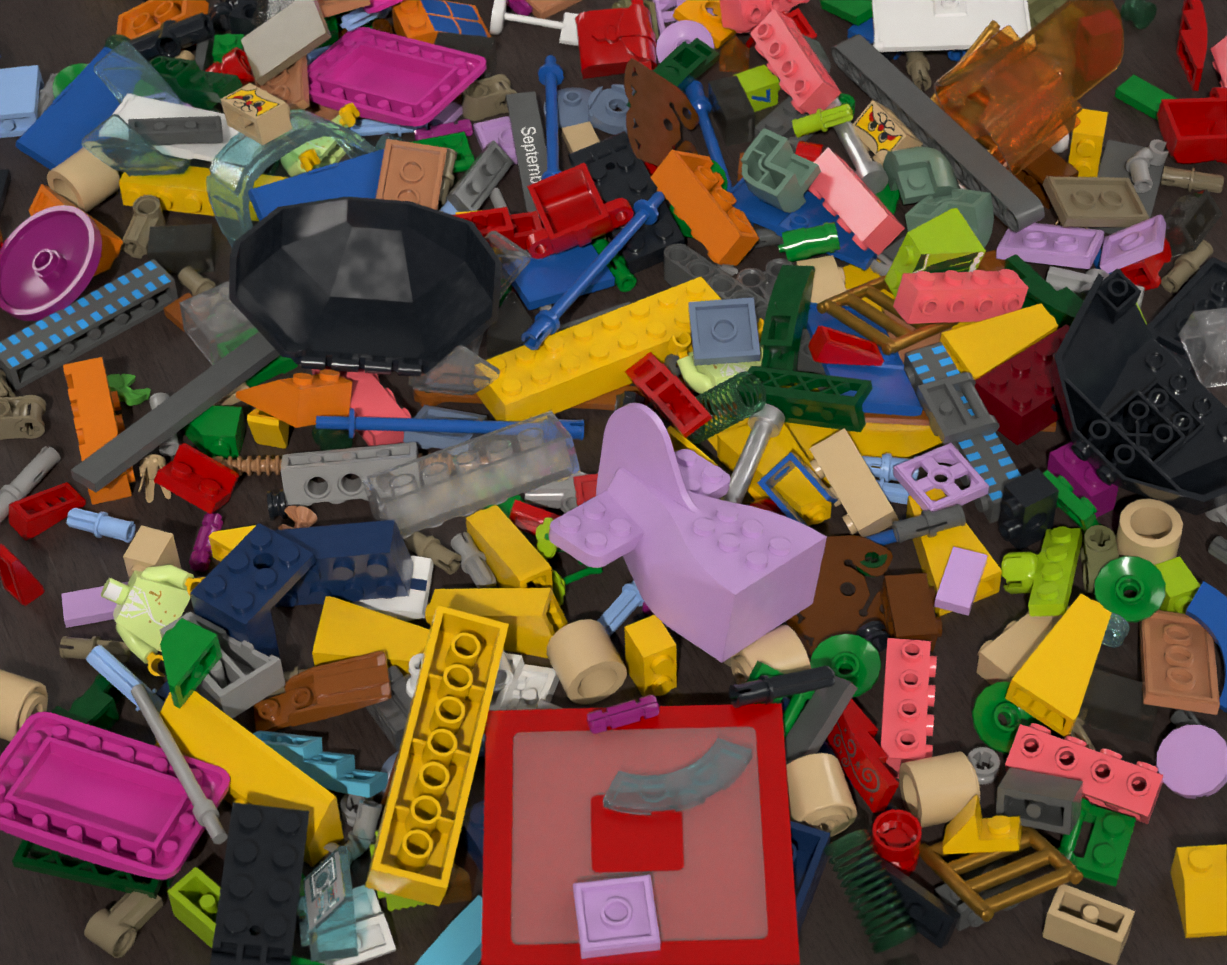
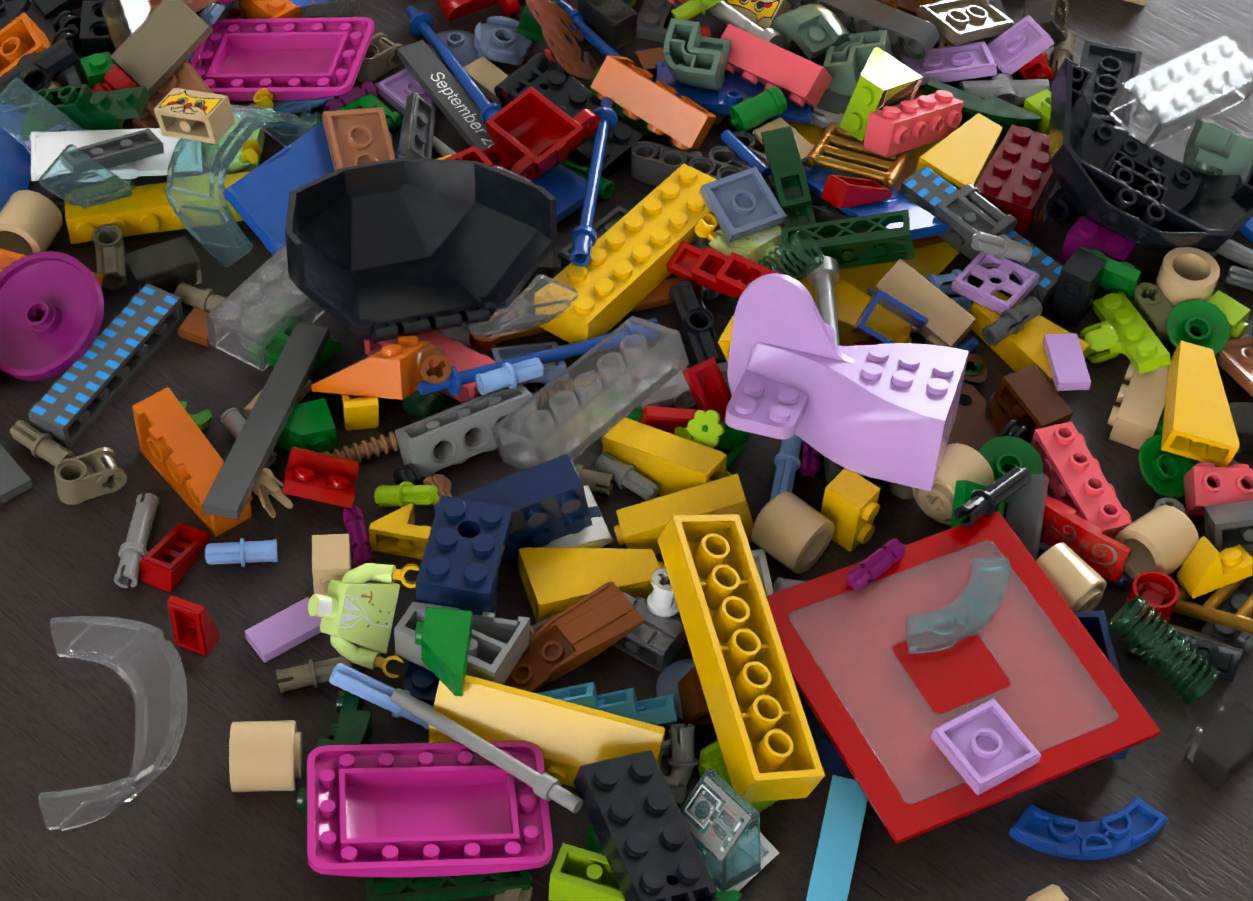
camera: 30 degrees left, 0 degrees up
(261, 514) = (405, 494): none -> lime axle
(334, 403) = (441, 371): none -> dark orange bush
(406, 433) = (509, 375): none -> light blue axle
(766, 274) = (744, 153): none -> blue piece
(960, 446) = (1002, 247): none -> light grey axle

